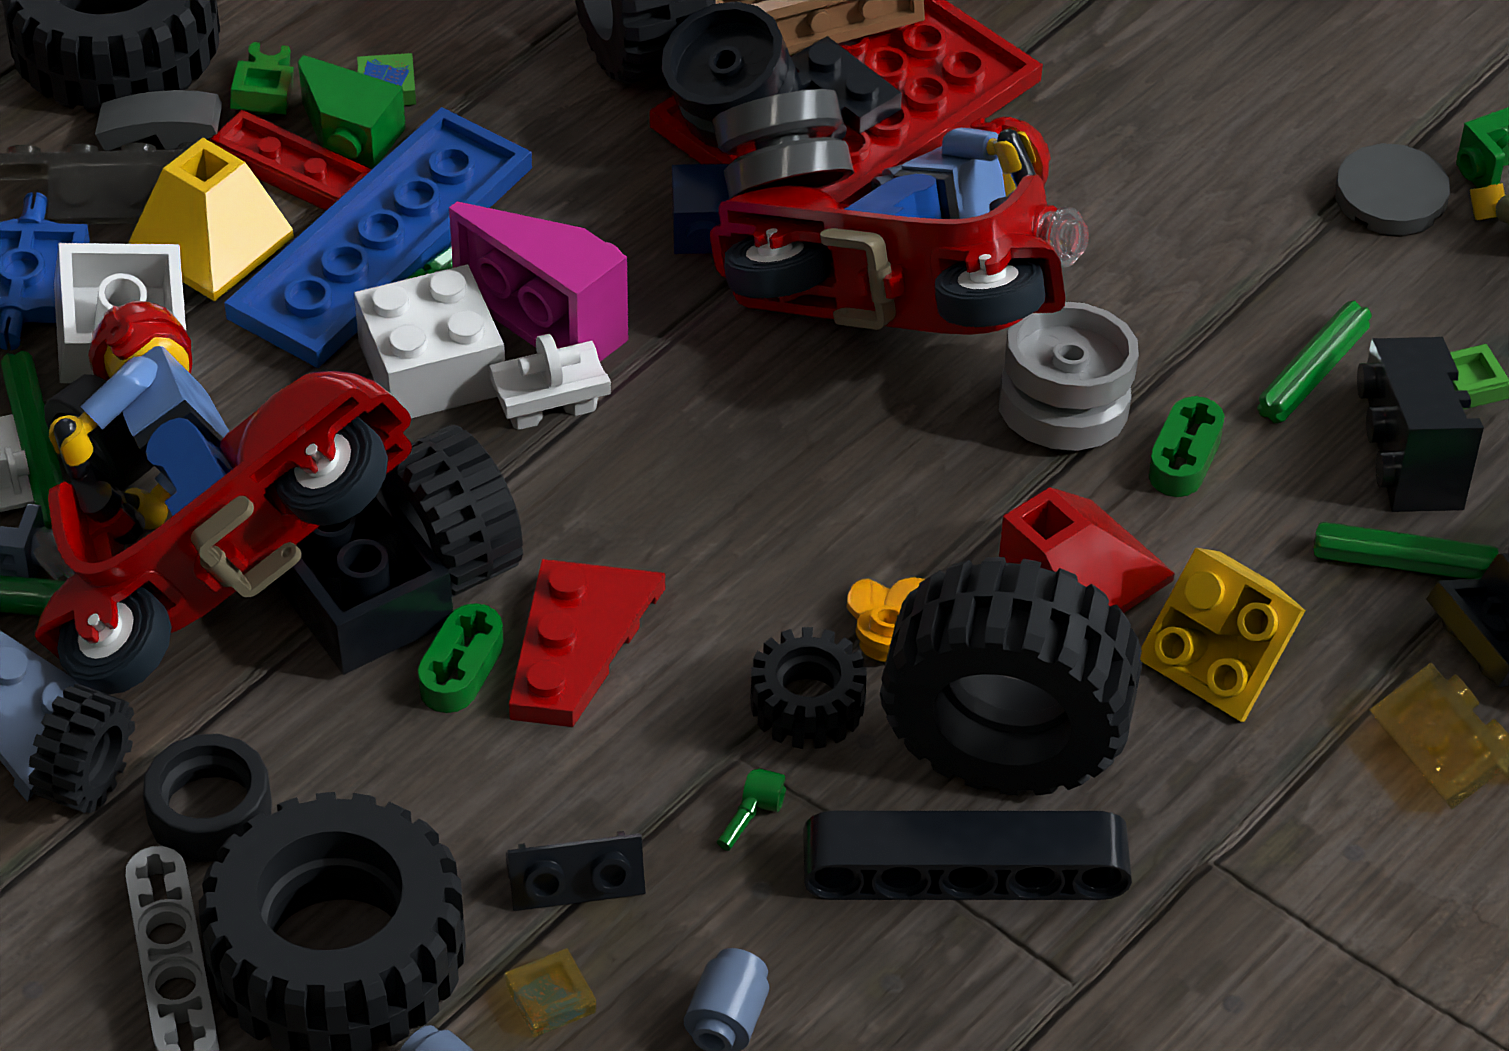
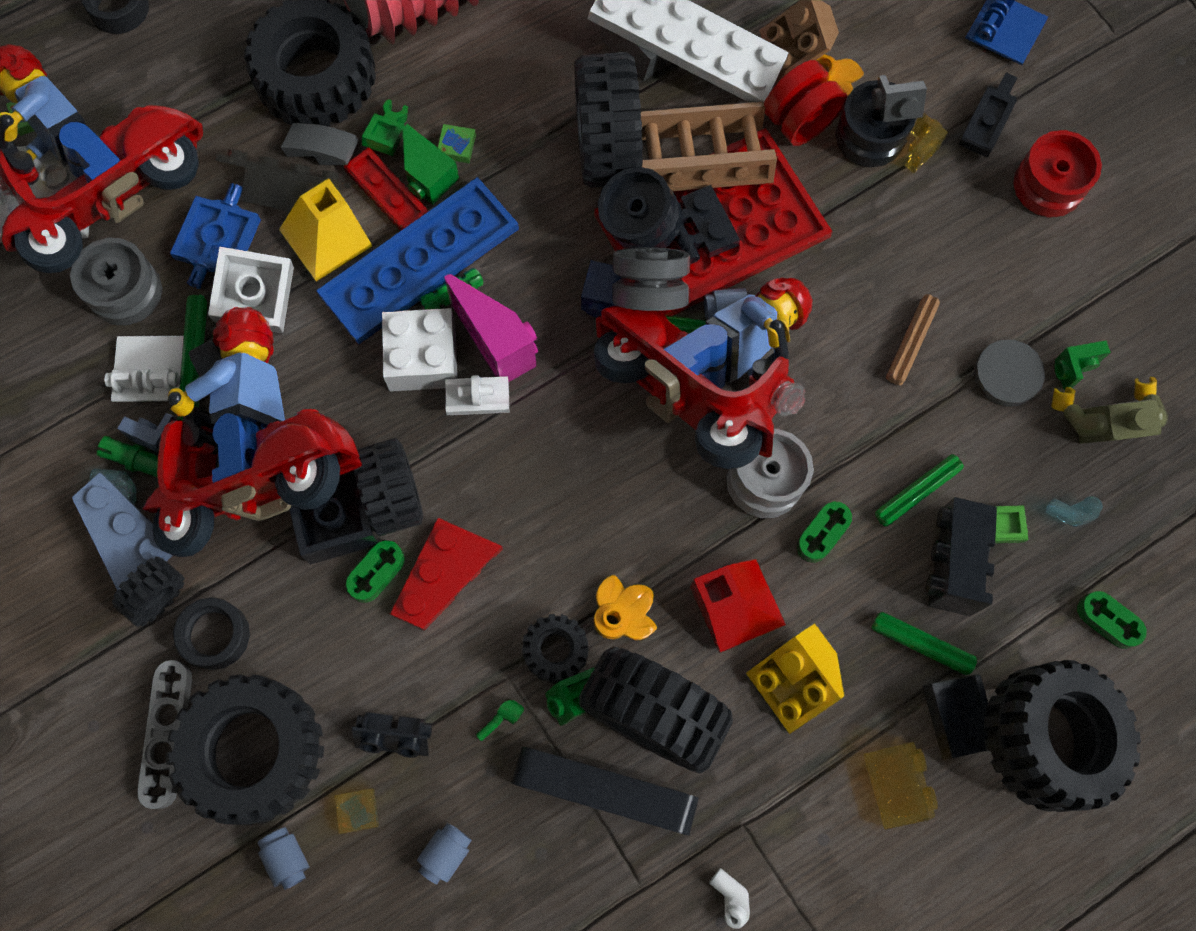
camera: 15 degrees right, 25 degrees up
(856, 744) = (564, 697): none -> green bracket
(1224, 178) = (913, 339): none -> medium nougat axle
(1240, 952) = (735, 899): none -> white arm

